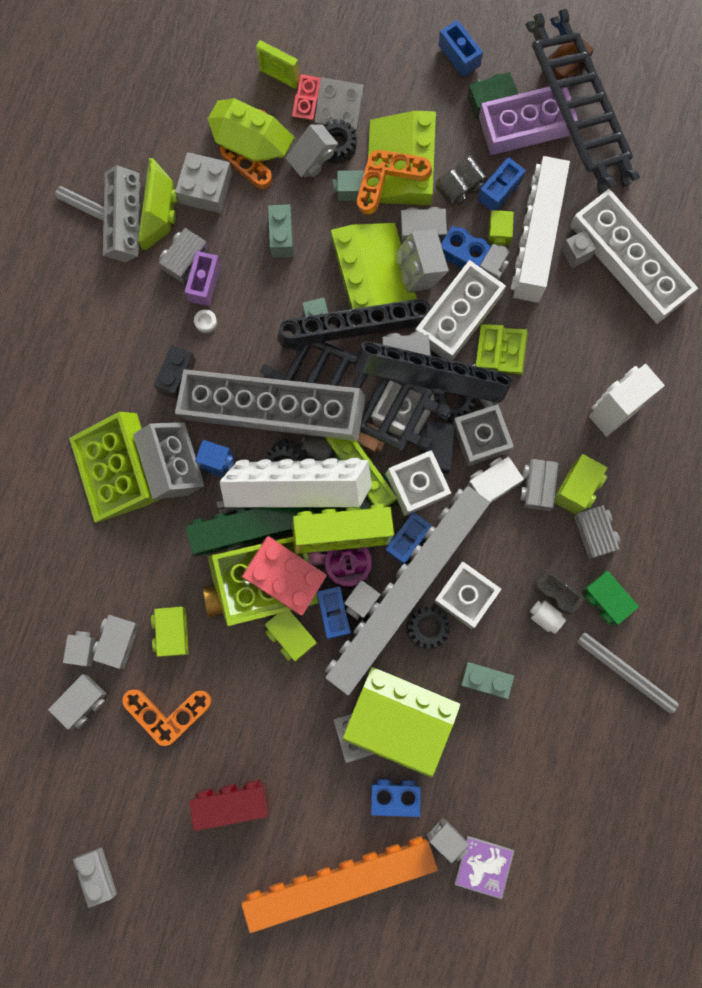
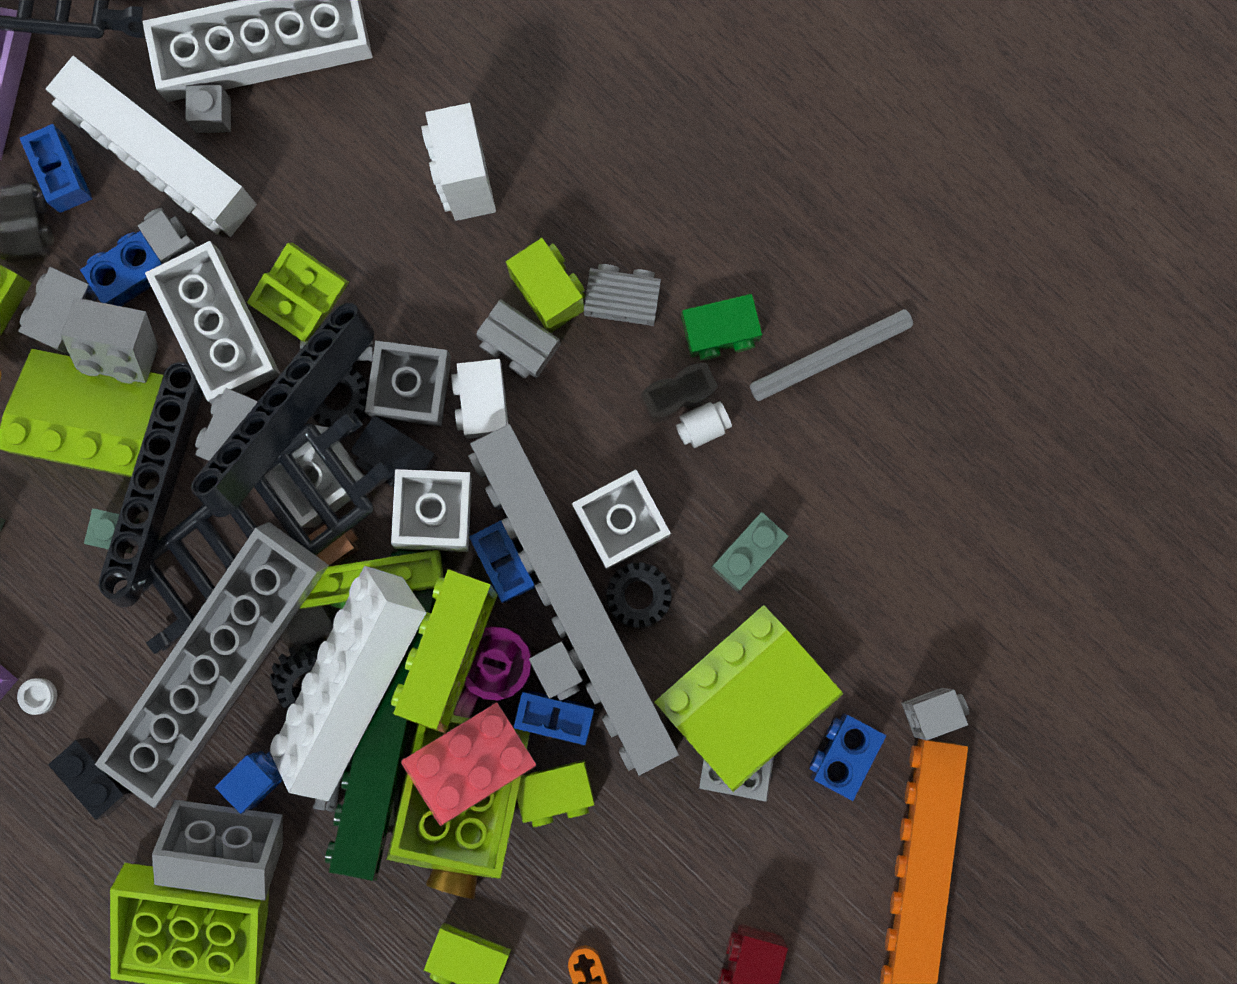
camera: 65 degrees left, 5 degrees up
(484, 867) = (992, 680): tile -> none
(500, 228) = (119, 202): lime brick -> none

